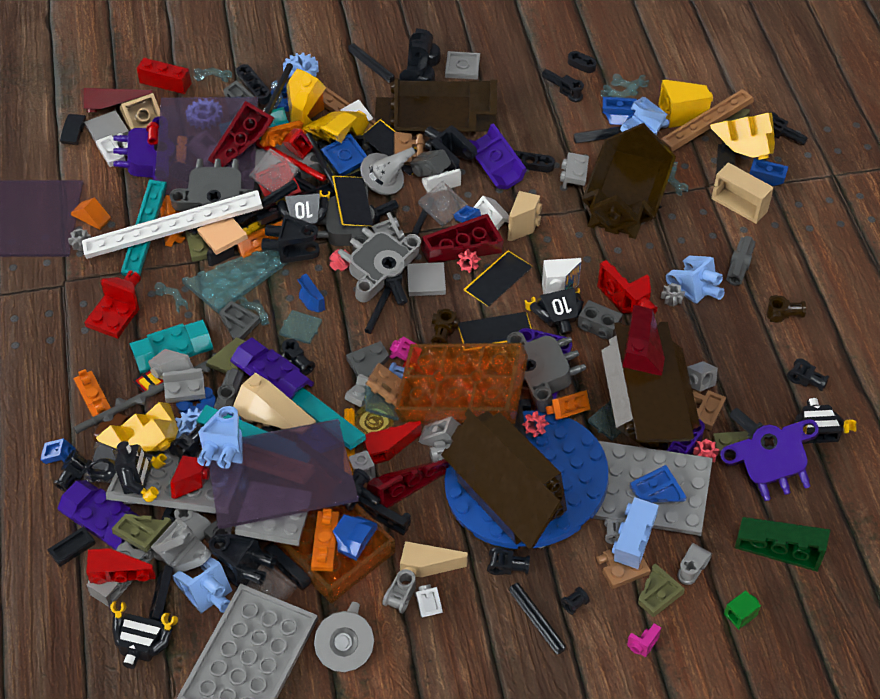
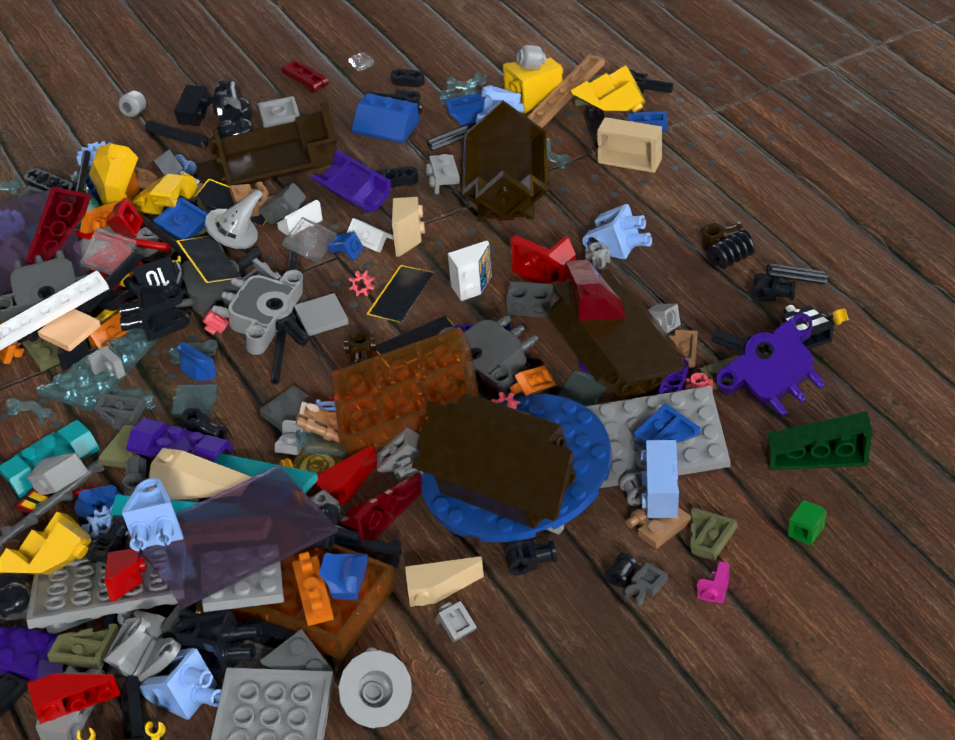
camera: 15 degrees left, 10 degrees down
(134, 468) = (54, 583): black torso -> none
(184, 385) = (79, 488): light grey bracket -> none
(240, 272) = (108, 361): none -> light grey bracket
(296, 591) = (296, 654): none -> dark grey wing
(315, 277) = (209, 348): none -> clear light blue arm
(345, 21) = (132, 103): none -> light grey head
(349, 98) = (165, 165): none -> slope
(367, 99) = (189, 166): none -> medium blue bush
(393, 38) = (192, 105): none -> black brick
(399, 594) = (419, 619): light grey piece -> none
(400, 348) = (321, 384): dark pink bracket -> none
(453, 143) = (302, 176): black piece -> none
(475, 234) = (334, 270): dark red wedge -> none
(496, 34) = (305, 75): none -> dark red plate
(537, 618) = (587, 601): black axle -> none
(547, 100) = (385, 118): none -> blue slope
(549, 32) = (361, 61): none -> clear tile
(558, 308) = (478, 299): black torso -> none
(591, 618) = (646, 581): none -> dark grey plate
(686, 82) = (530, 57): none -> light grey head
(693, 564) = (734, 496): light grey piece -> none
(740, 260) = (655, 206): dark grey piece -> none
(788, 325) = (731, 249): none -> black piece
(833, 368) = (796, 273): none -> black axle

